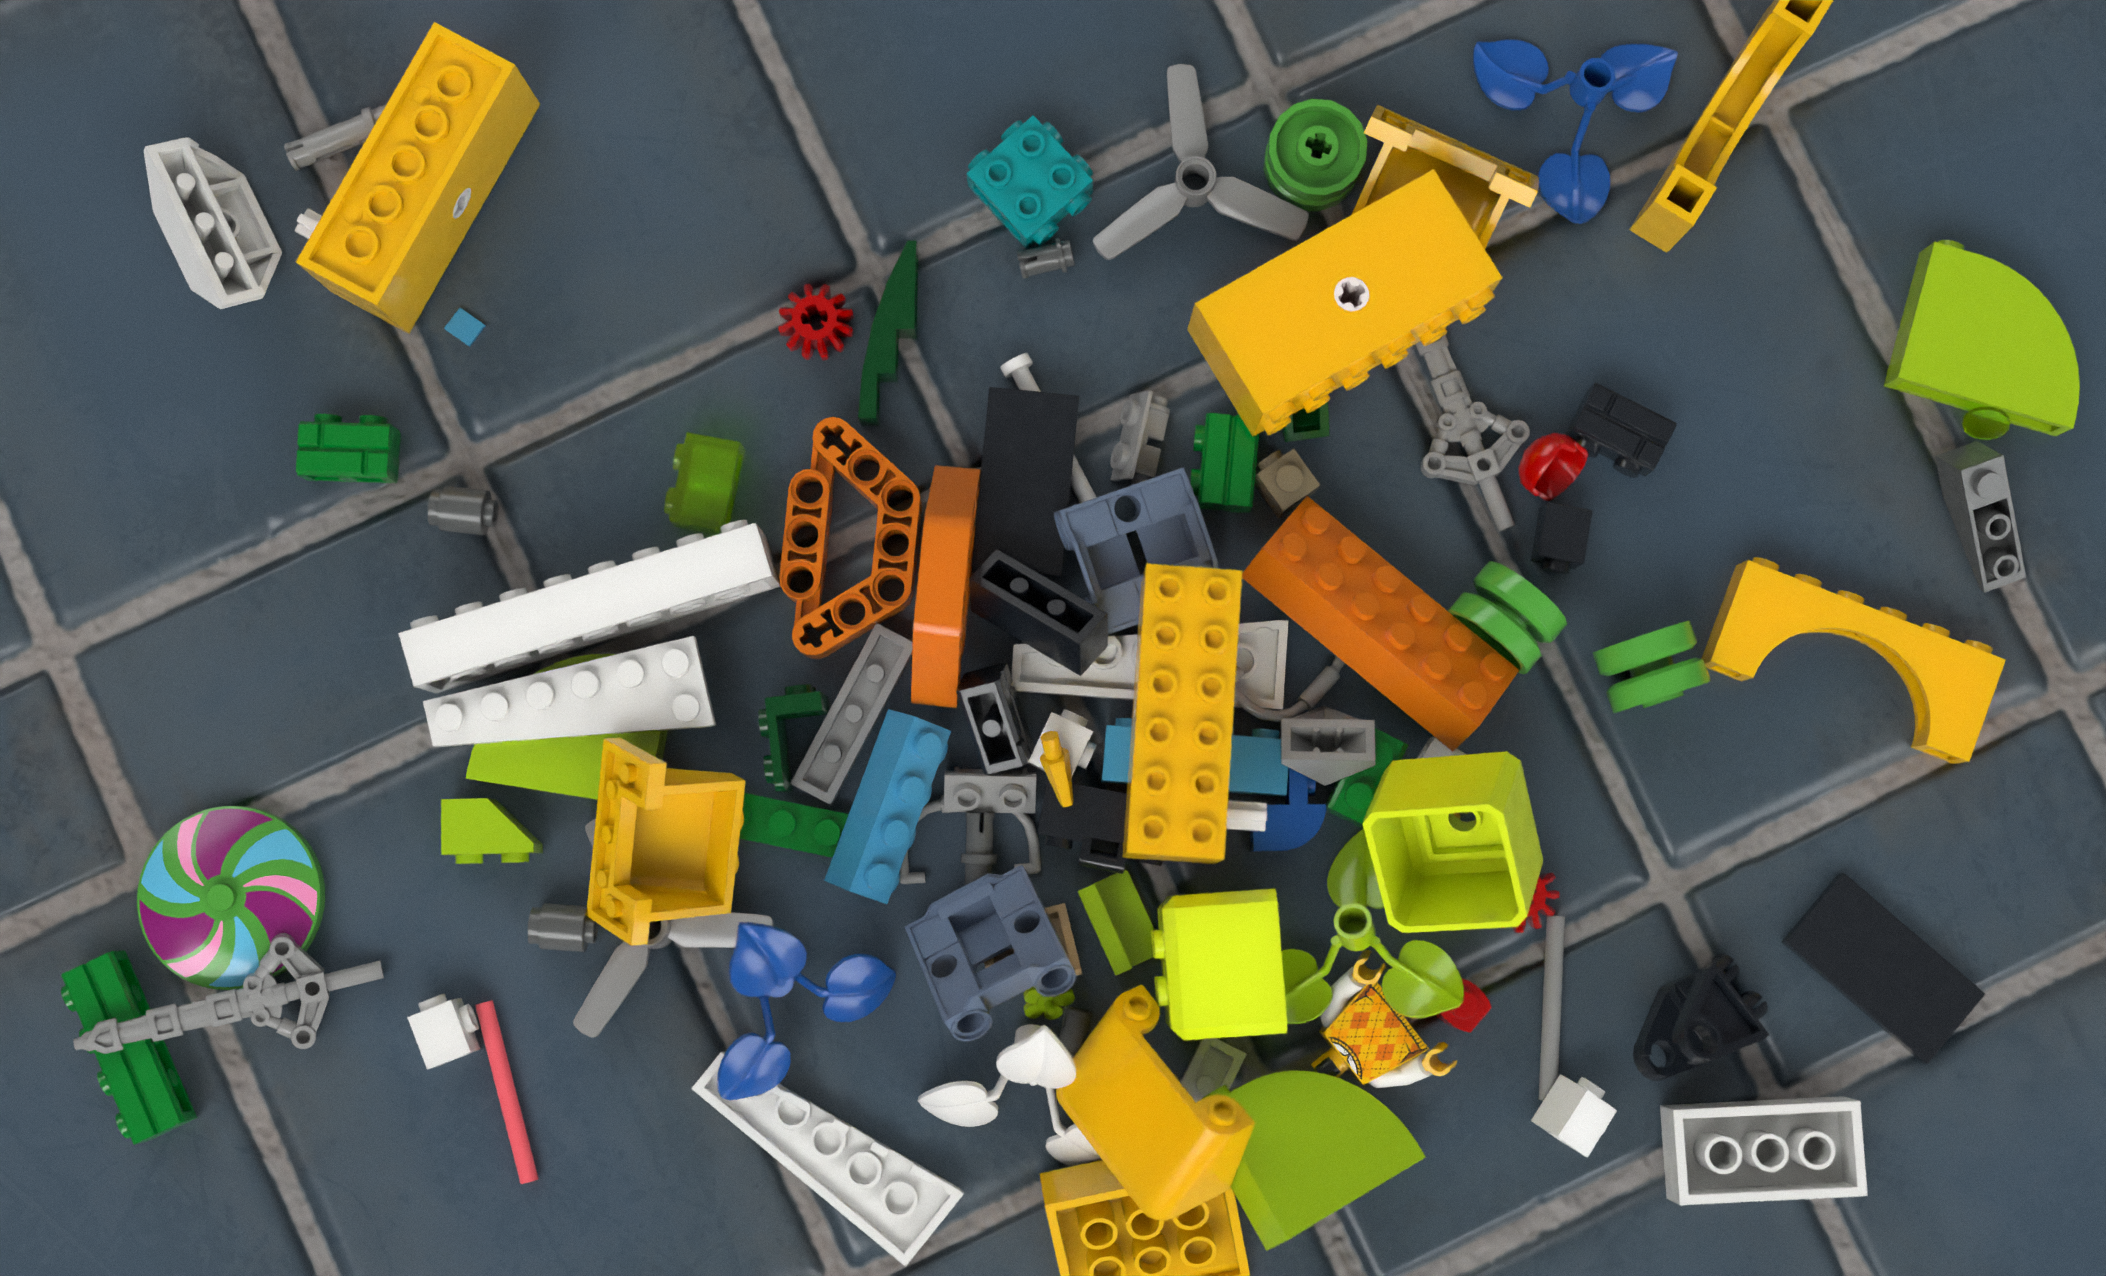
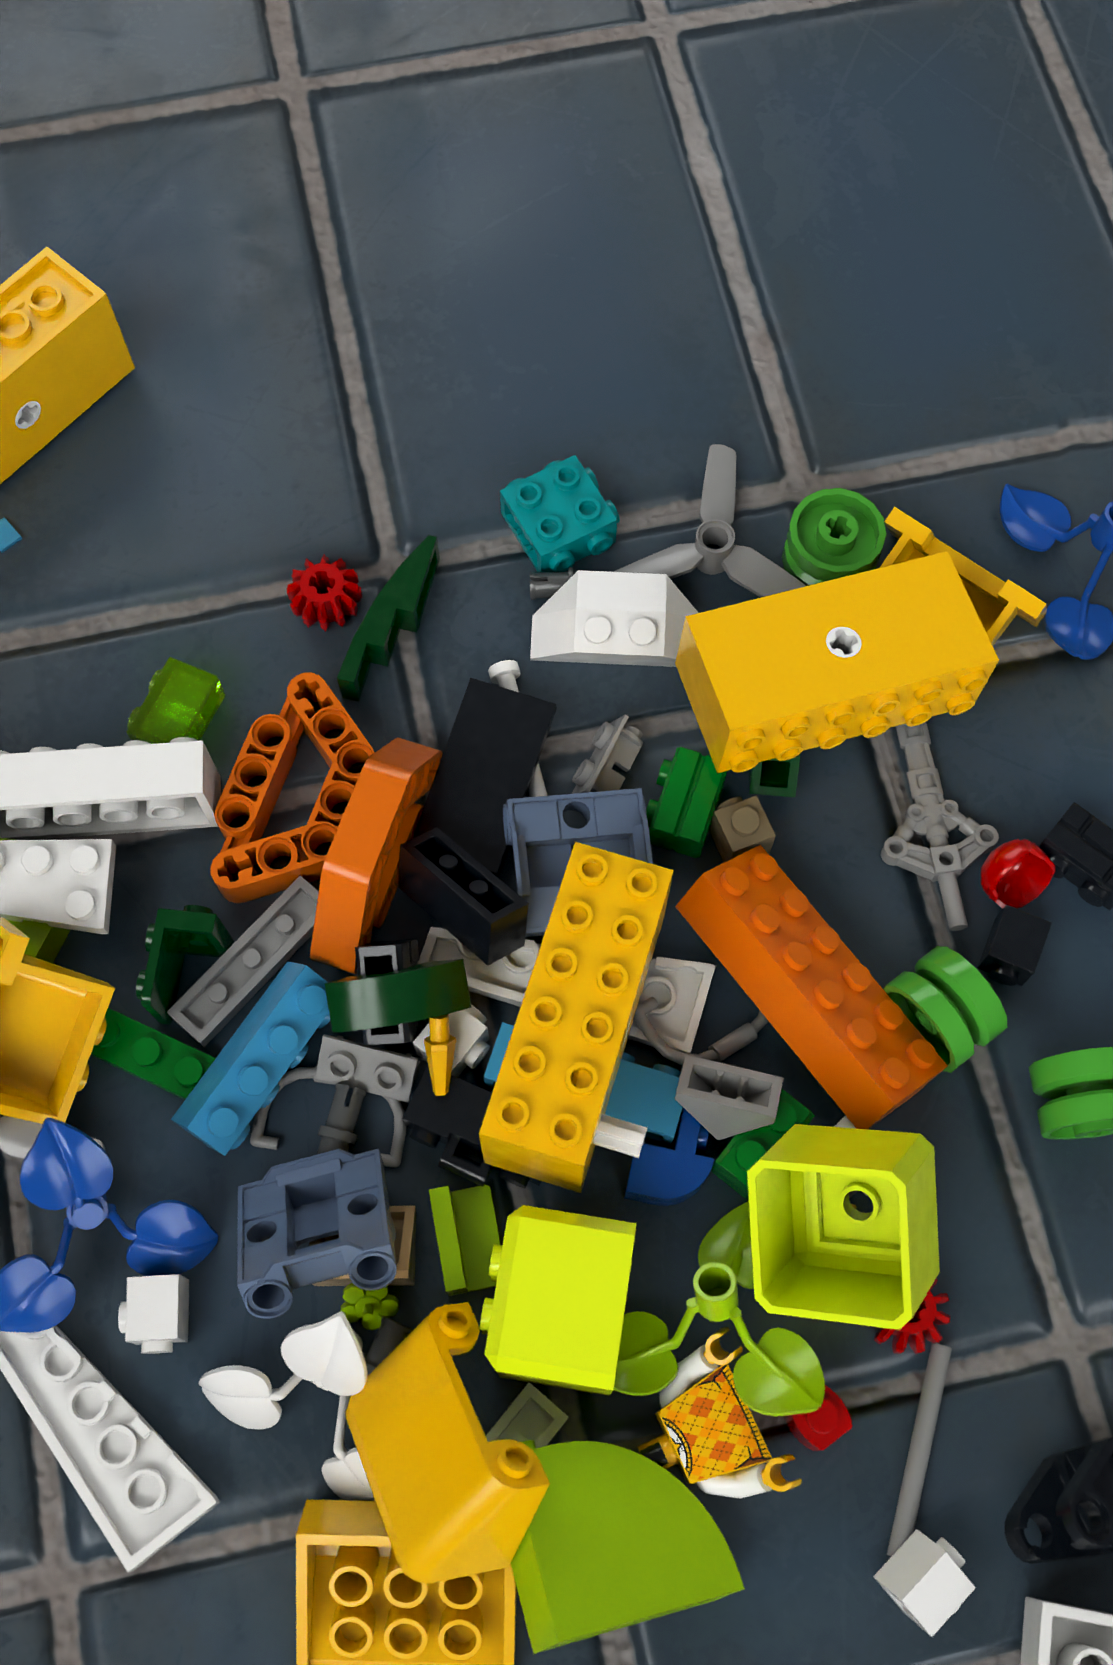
camera: 15 degrees right, 15 degrees down
(862, 1052) = (155, 1312): none -> white brick
(1019, 726) = (398, 996): none -> dark green brick
(1117, 288) = (611, 620): none -> white wedge

